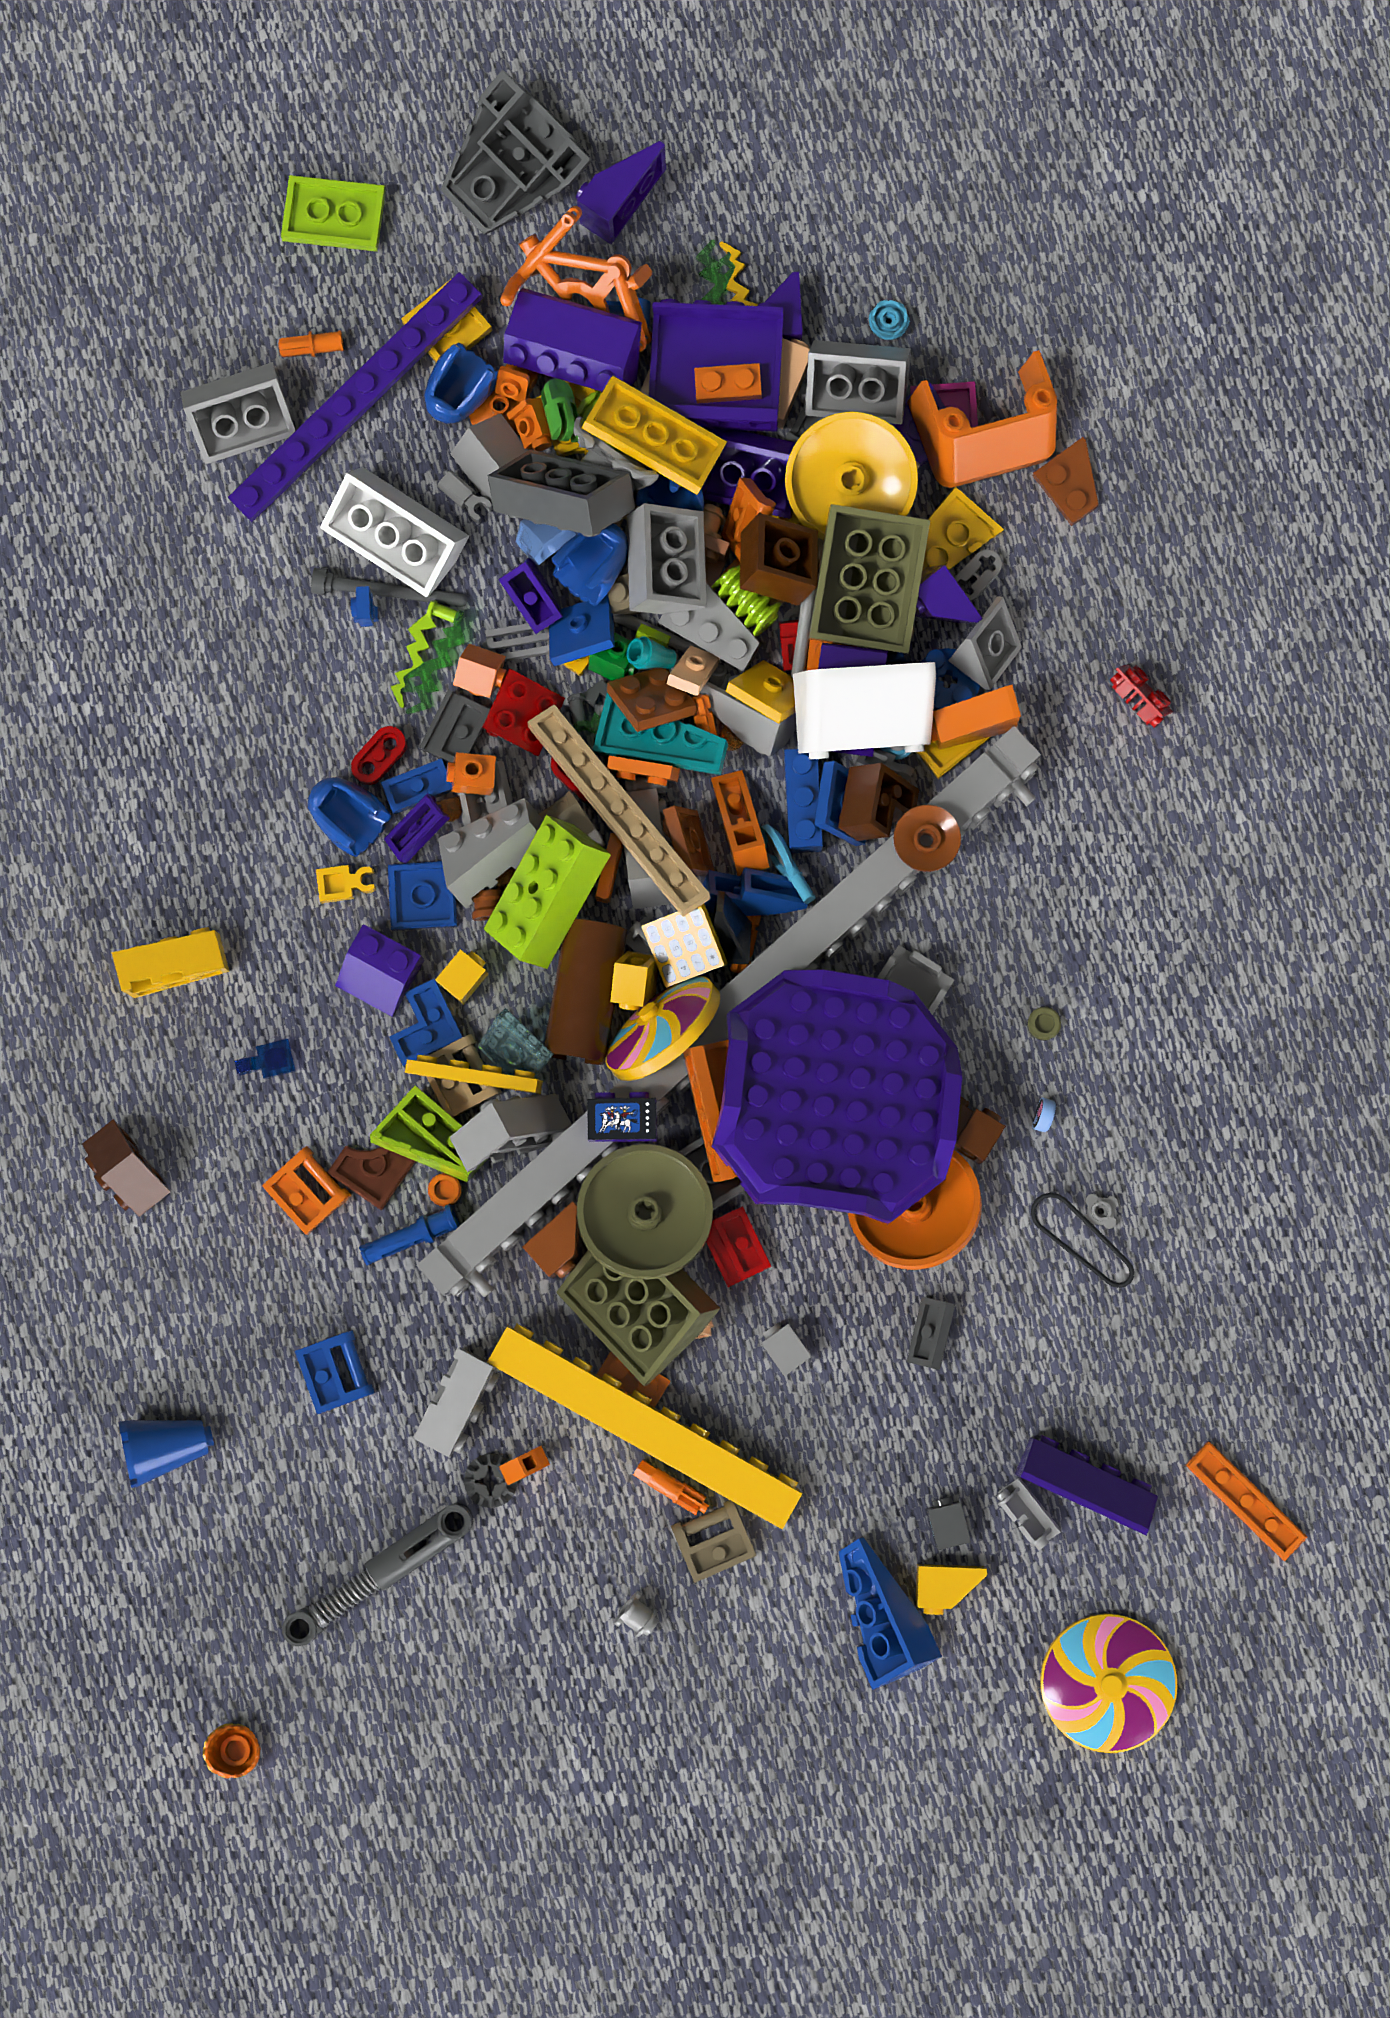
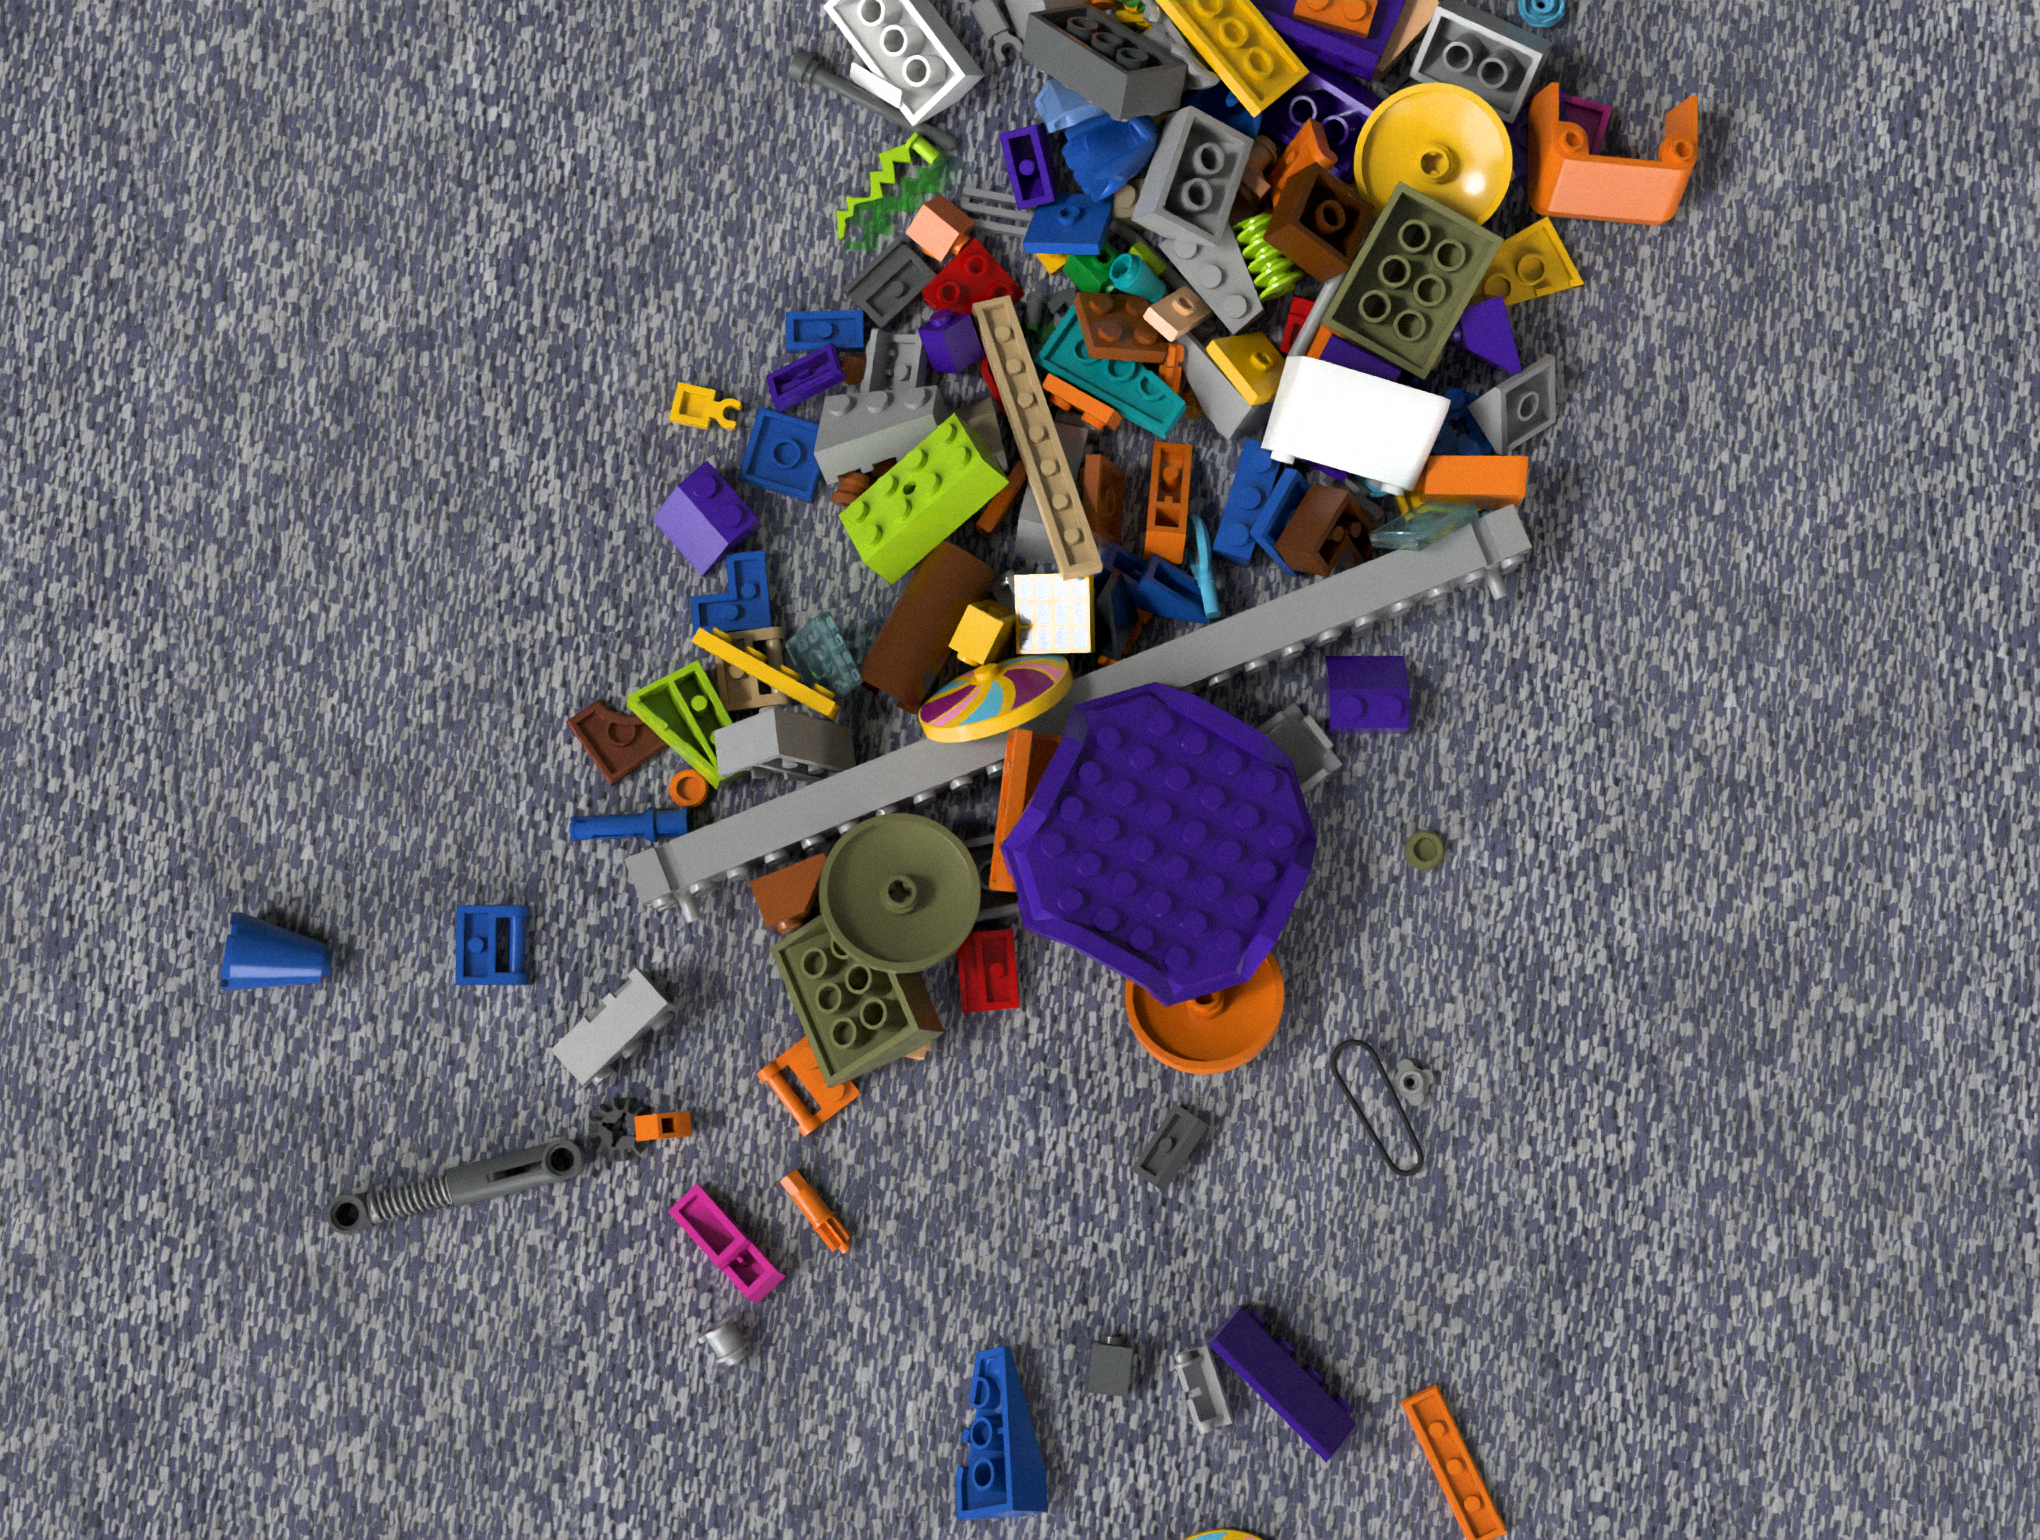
camera: 15 degrees right, 0 degrees up
(124, 1169) = (343, 635): brick -> none
(170, 962) = (478, 426): yellow wedge -> none
(231, 1751) = (222, 1321): orange hair -> none
(272, 1059) = (553, 574): clear blue plate -> none
(296, 1196) = (524, 739): orange plate -> none
(347, 814) = (736, 333): blue hair -> none
(362, 607) = (837, 111): blue plate -> none
(376, 754) = (792, 278): red plate -> none
(385, 575) = (875, 85): none -> white sticker
(463, 975) = (797, 558): yellow brick -> none
(472, 773) = (889, 338): orange brick -> none
(521, 758) = (950, 341): none -> dark purple brick
(609, 1540) = (726, 1244): none -> dark pink slope
(622, 1118) = (912, 779): brick -> none
(645, 1426) = (812, 1132): yellow brick -> none
(718, 1551) = (842, 1302): dark tan plate -> none
(784, 1348) = (1000, 1103): light grey brick -> none
(927, 821) = (1372, 573): dark orange dish -> none
(945, 1585) = (1081, 1434): yellow slope -> none
(949, 768) = (1423, 526): none -> clear light blue tile
(953, 917) = (1366, 695): none -> dark purple slope
(977, 1132) = (1303, 941): reddish brown brick -> none
(983, 581) = (1543, 331): light grey beam -> none
(1044, 1115) = (1386, 951): light blue tile -> none
(1070, 482) = (1677, 258): dark orange wing -> none
(1135, 679) = (1668, 502): red hinge -> none

